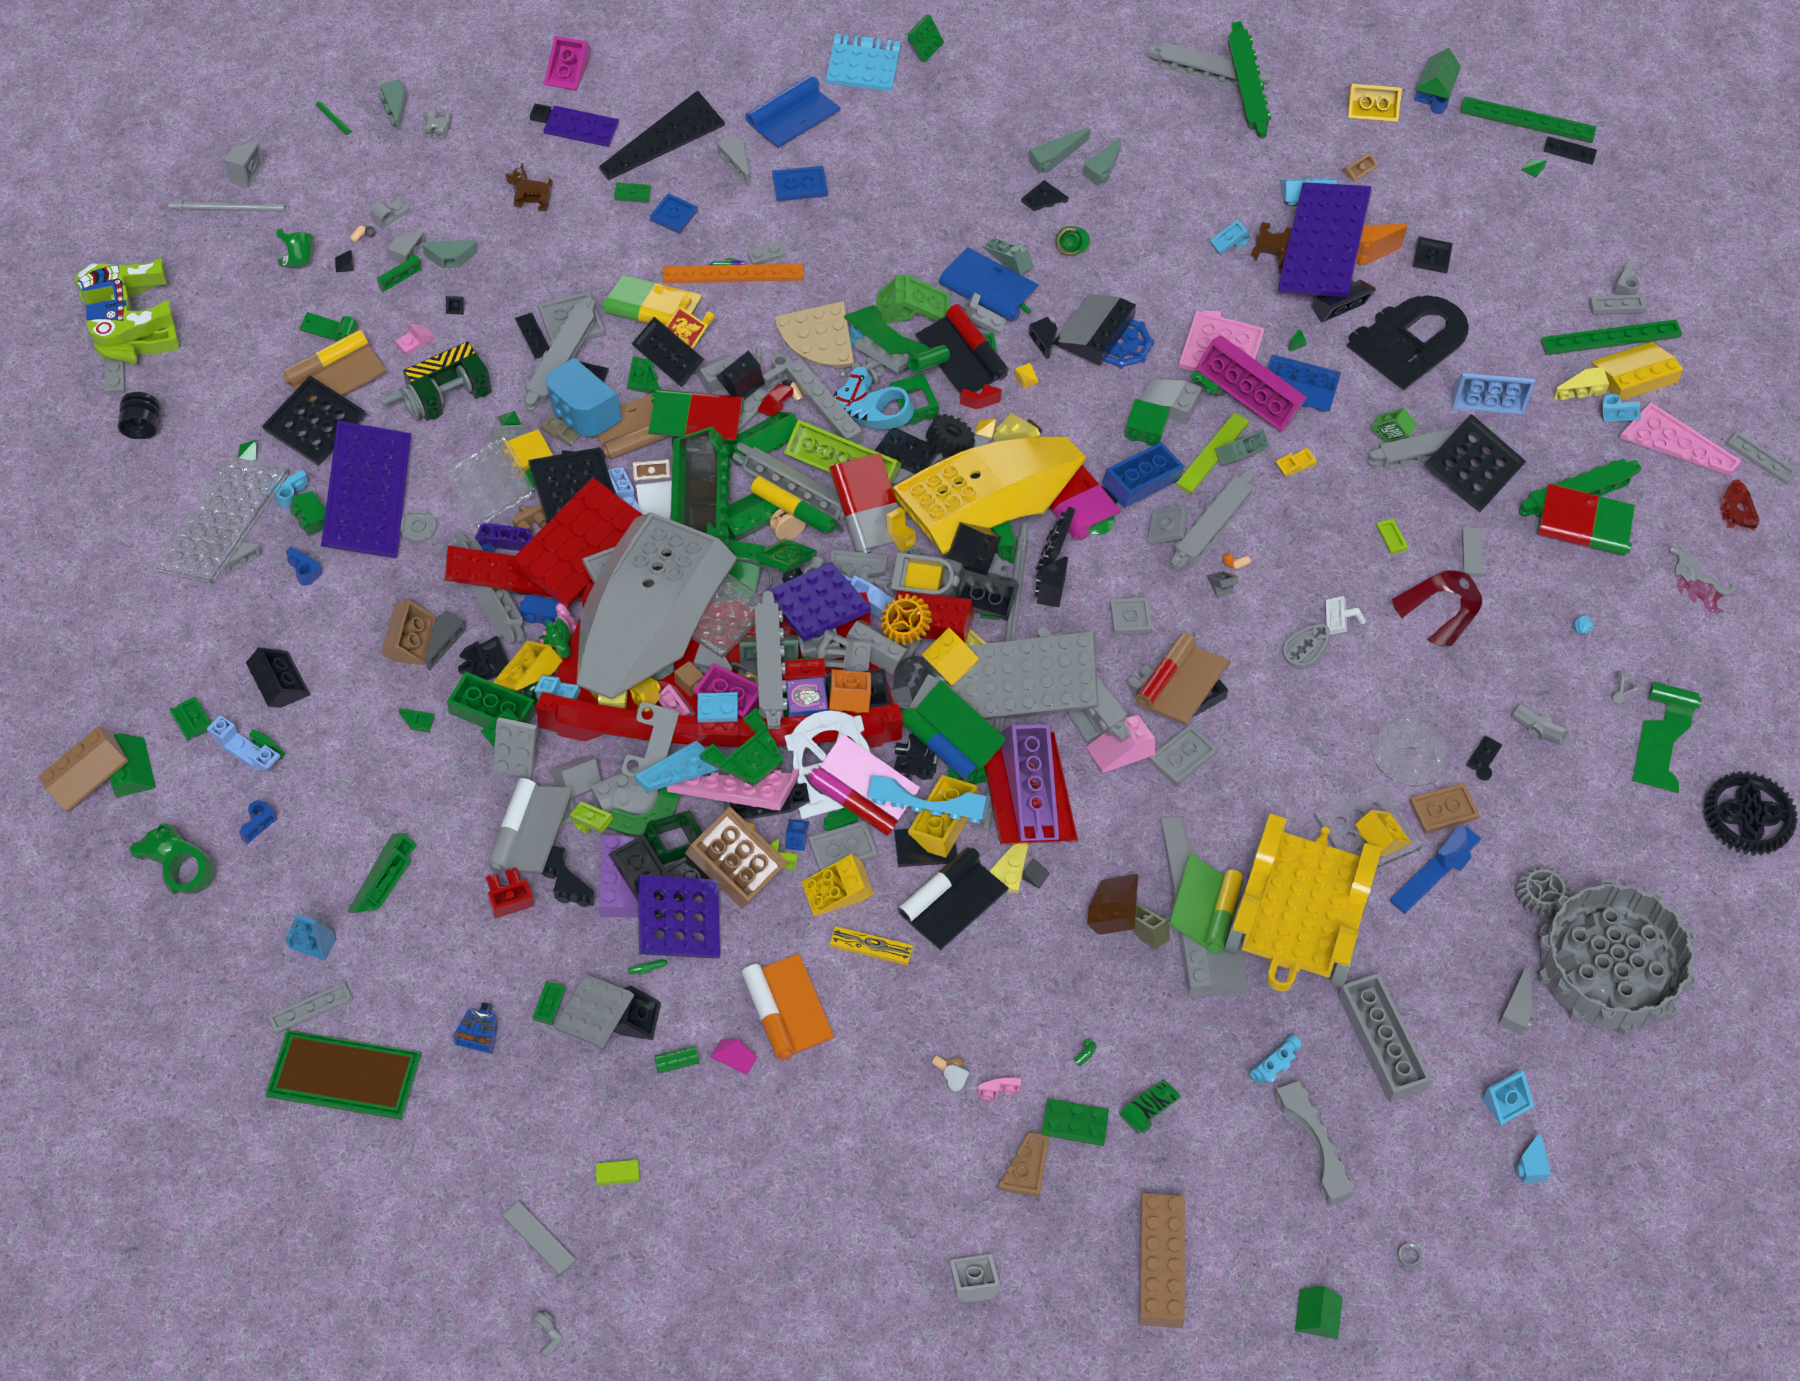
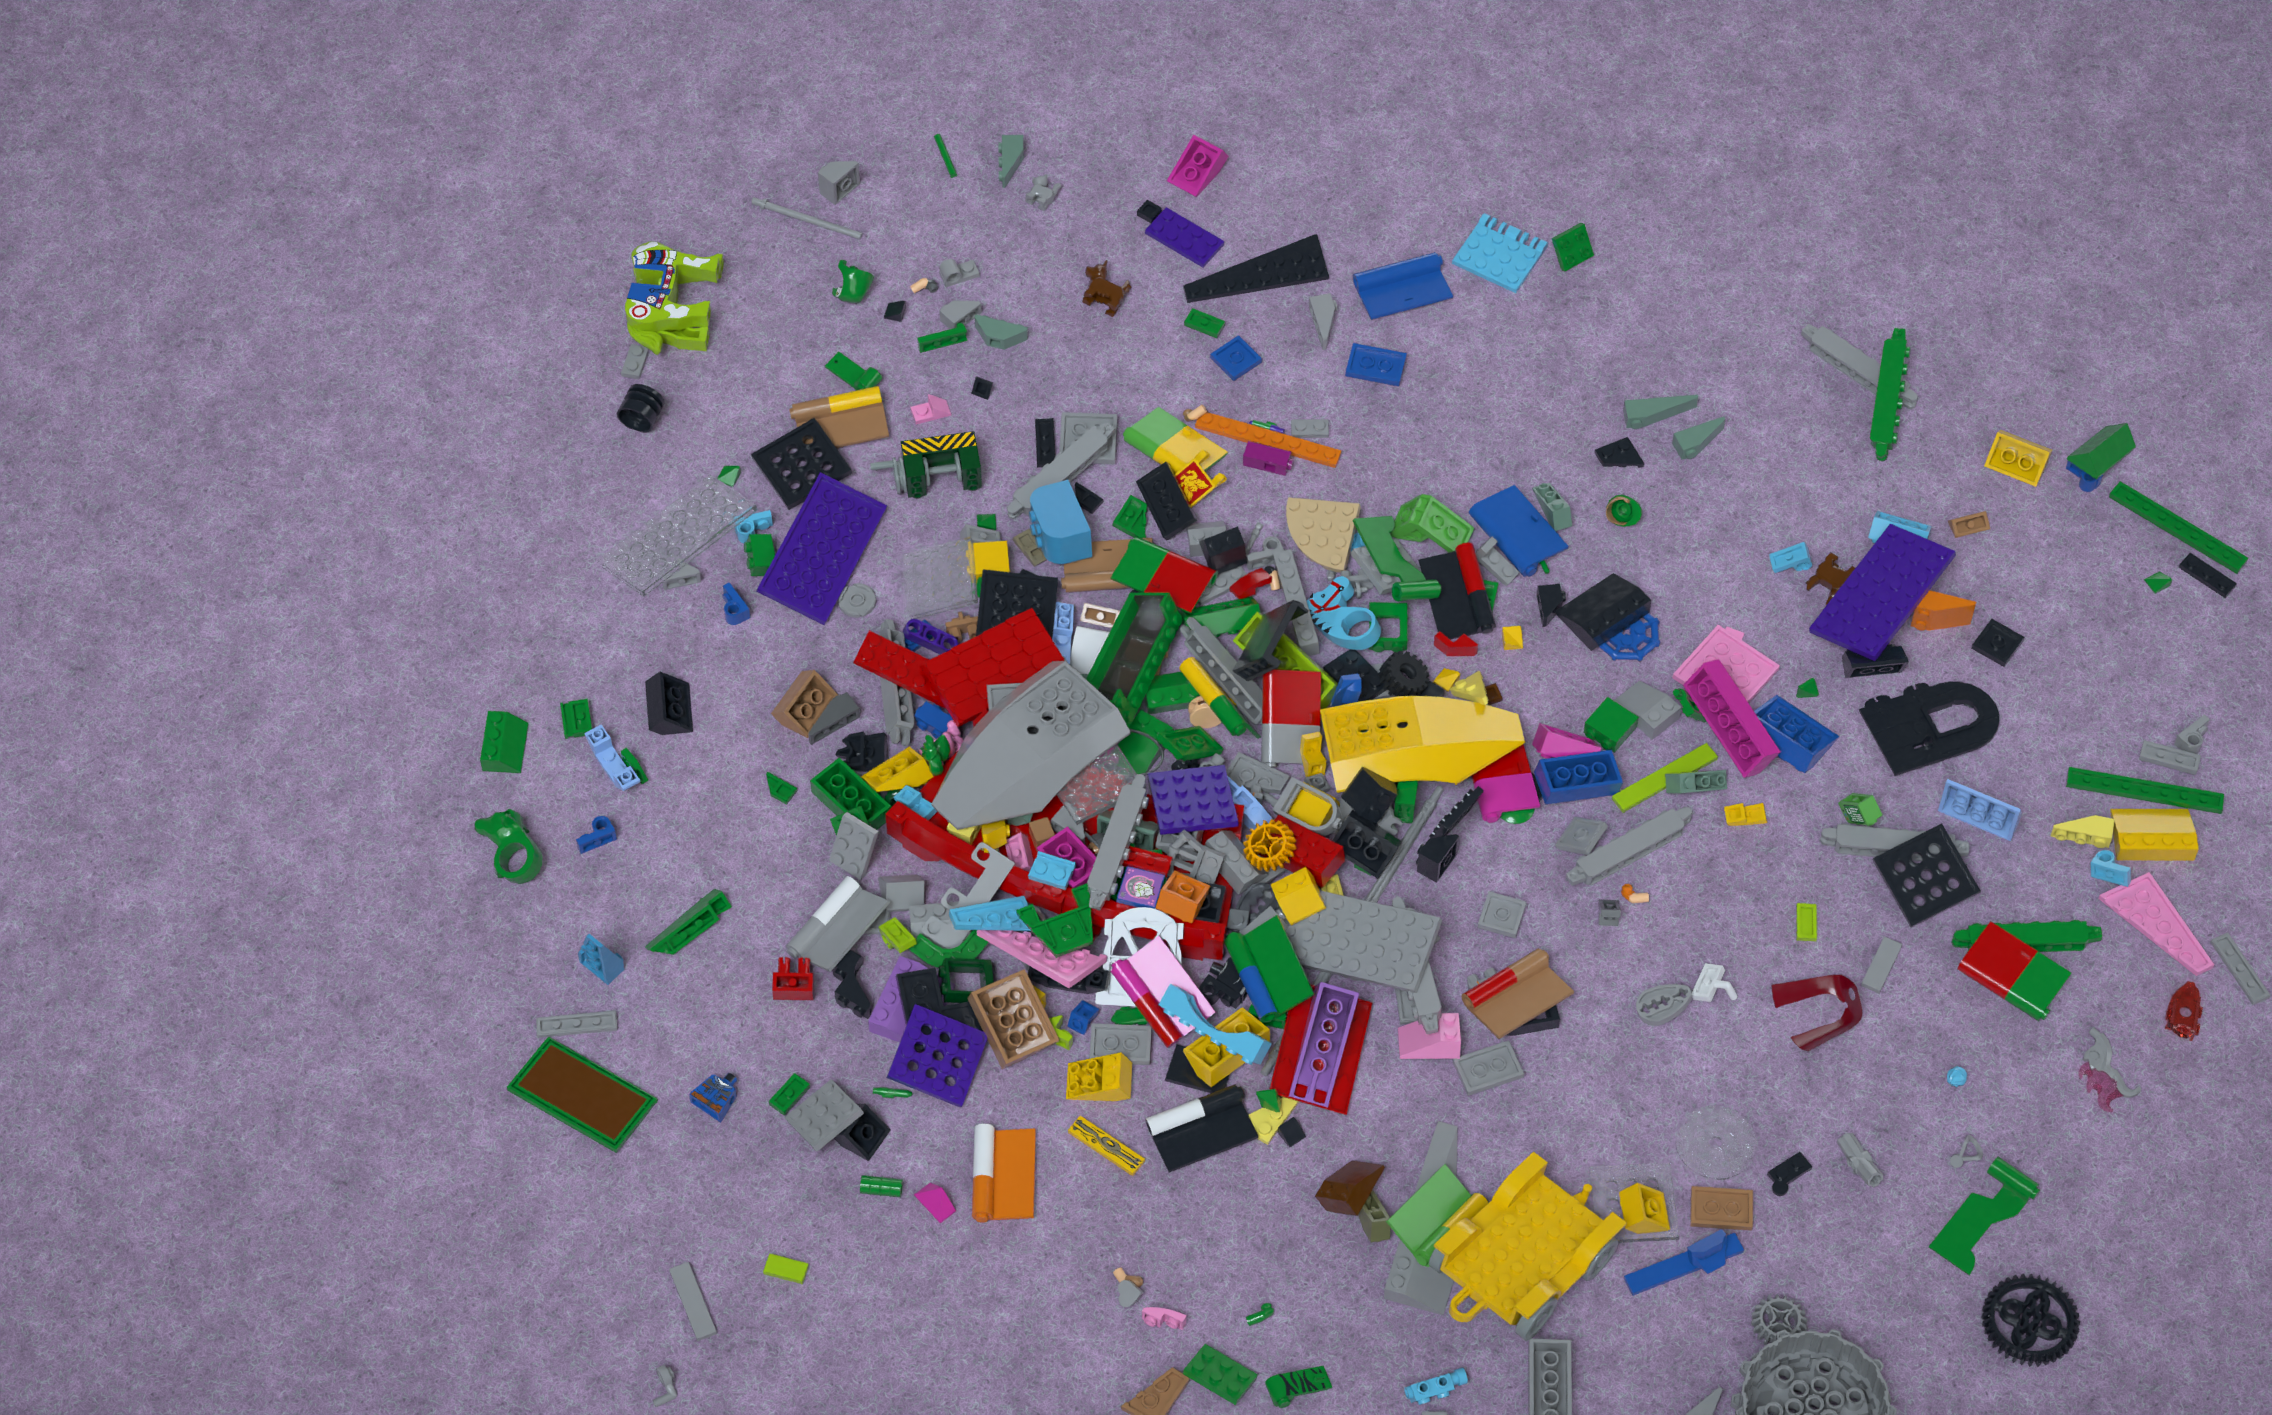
camera: 25 degrees right, 0 degrees up
(83, 768) = (461, 733): medium nougat slope -> none
(656, 273) = (1190, 415): none -> light nougat arm
(741, 289) = (1267, 458): none -> magenta brick
(823, 439) = (1257, 656): none -> black panel
(909, 463) = (1347, 690): none -> blue slope
(1004, 850) = (1269, 1099): none -> green slope
(1110, 452) = (1558, 743): none -> dark pink slope

